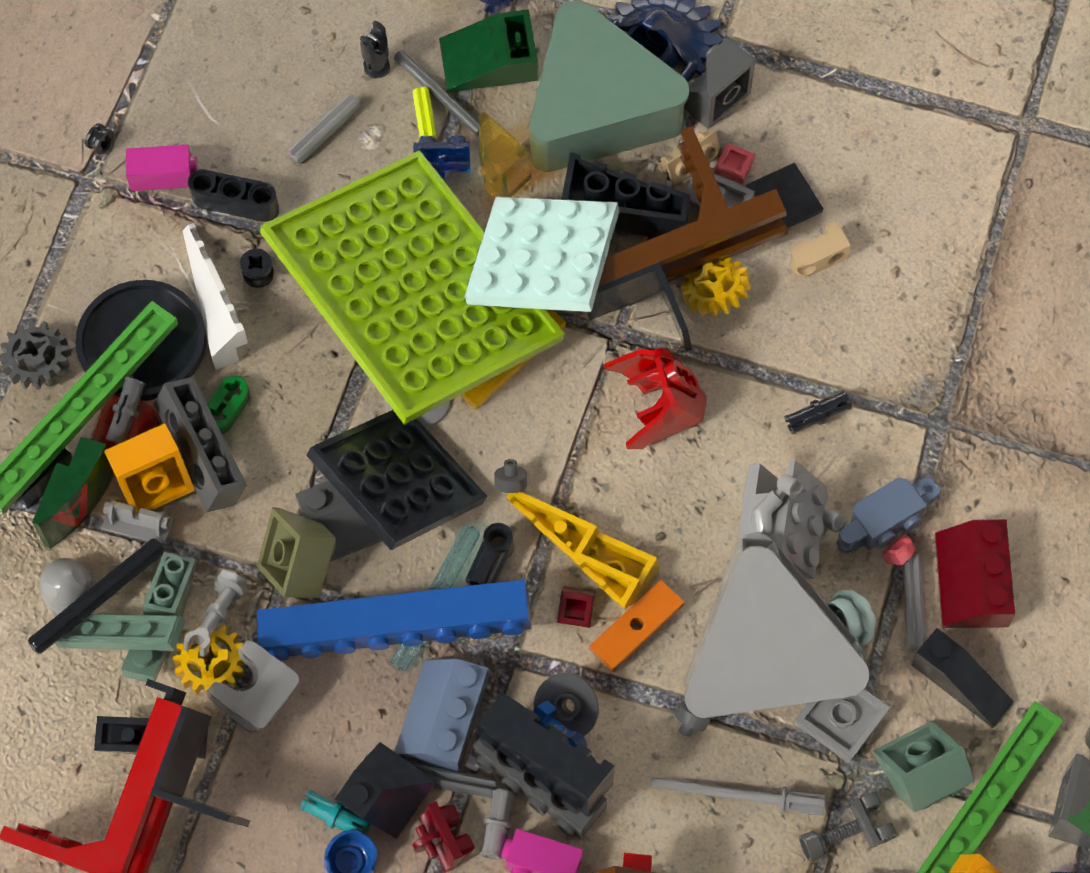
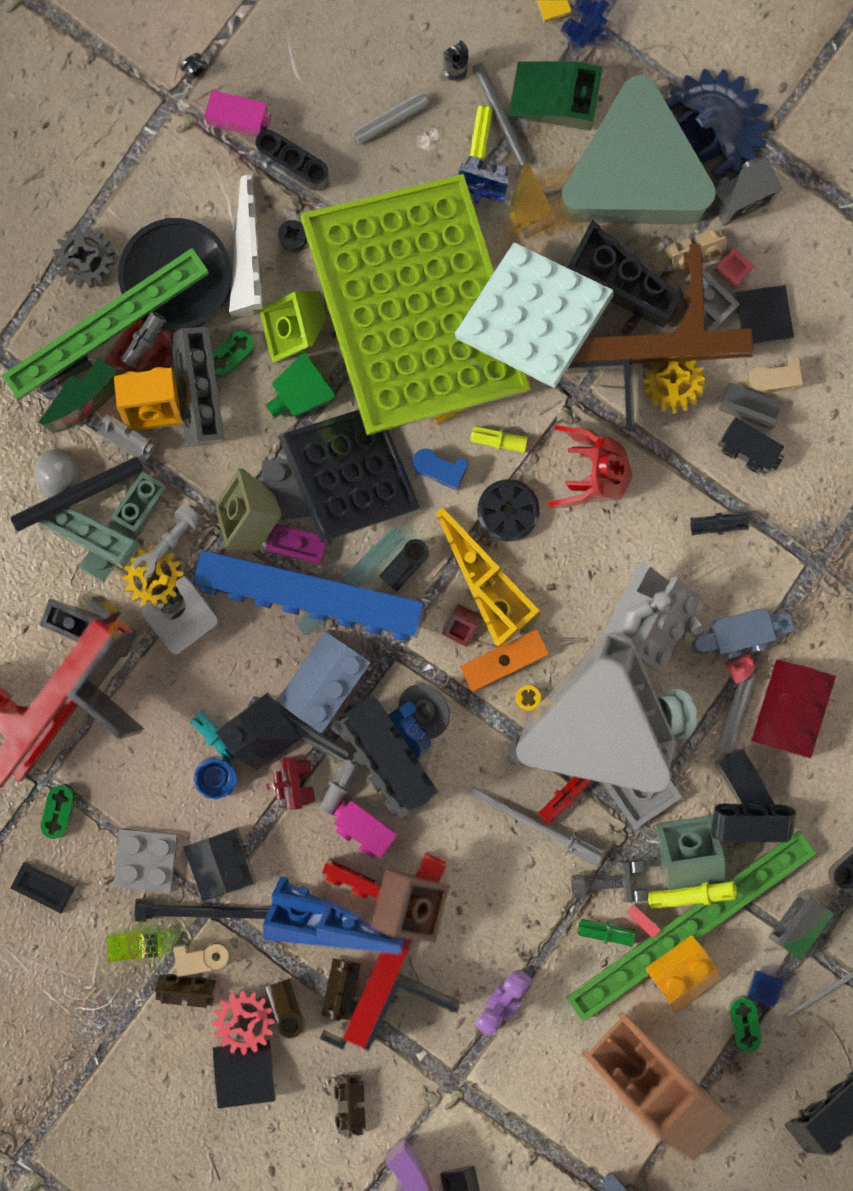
camera: 20 degrees right, 20 degrees up
(283, 351) = (292, 323): none -> lime slope
(315, 414) = (300, 390): none -> green torso
(361, 575) = (295, 544): none -> magenta plate
(493, 450) = (439, 470): none -> blue leg
(510, 477) = (444, 499): dark grey tile -> none
(548, 401) = (499, 439): none -> neon yellow axle
(597, 455) = (522, 500): none -> black wheel
(667, 659) = (537, 697): none -> yellow bush
(759, 751) = (549, 813): none -> red pin
(804, 288) = (750, 406): none -> dark grey panel
(821, 324) = (751, 446): none -> black brick
(894, 854) = (643, 921): none -> coral tile
(957, 801) = (704, 893): none -> neon yellow pin
(979, 705) = (753, 822): none -> black beam

